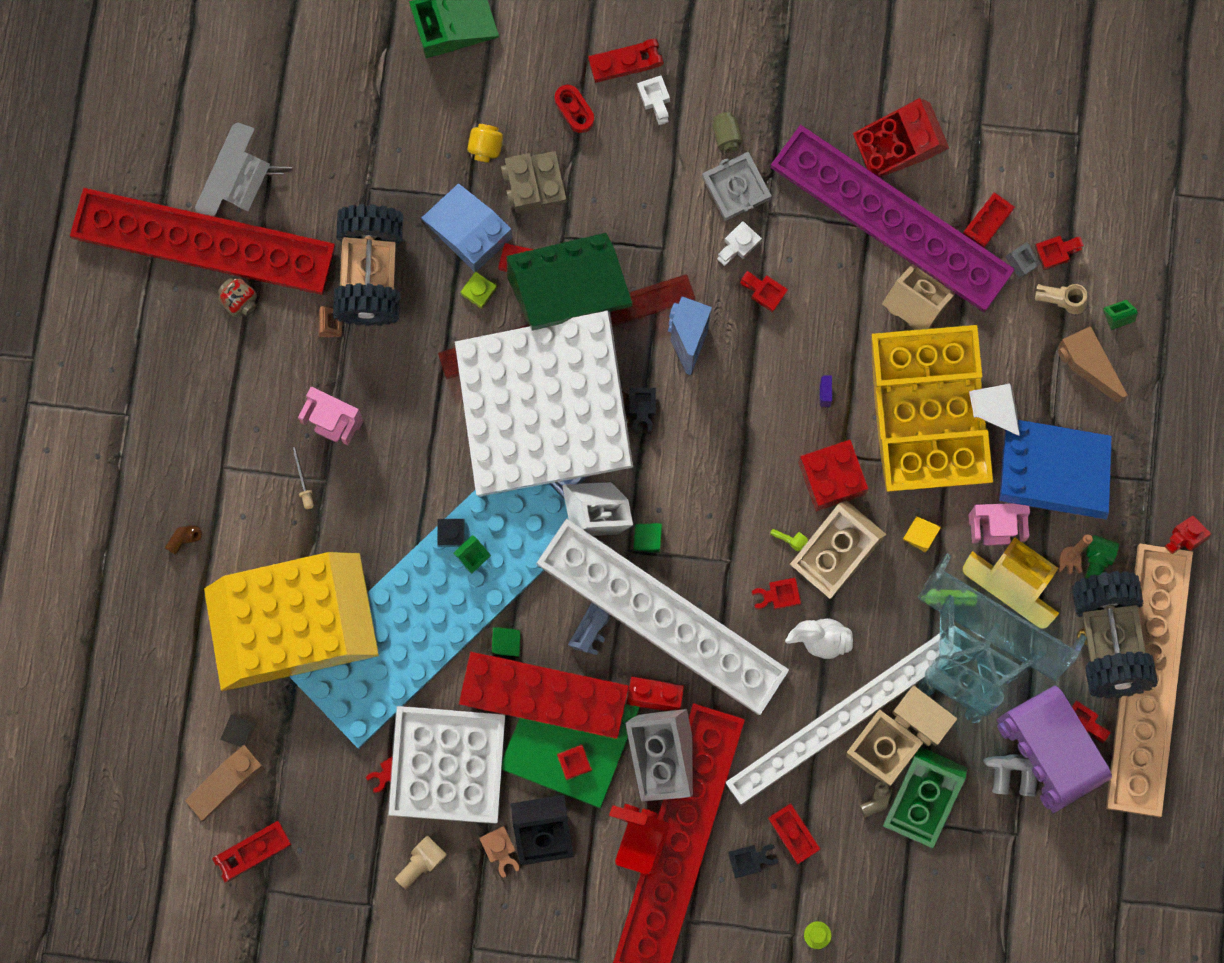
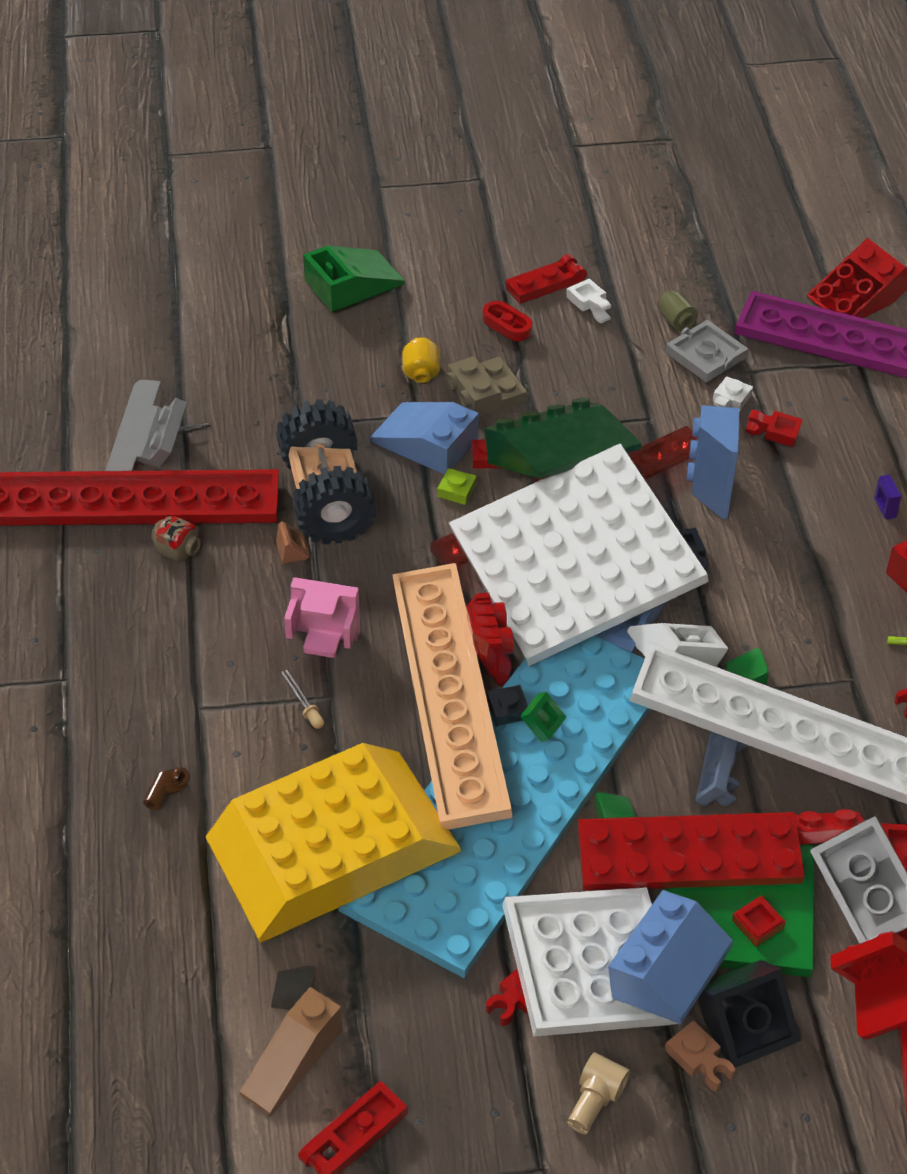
camera: 15 degrees left, 30 degrees down
(410, 509) = (451, 699): none -> light nougat plate
(451, 468) = (491, 636): none -> red slope
(495, 786) = (669, 958): none -> medium blue slope

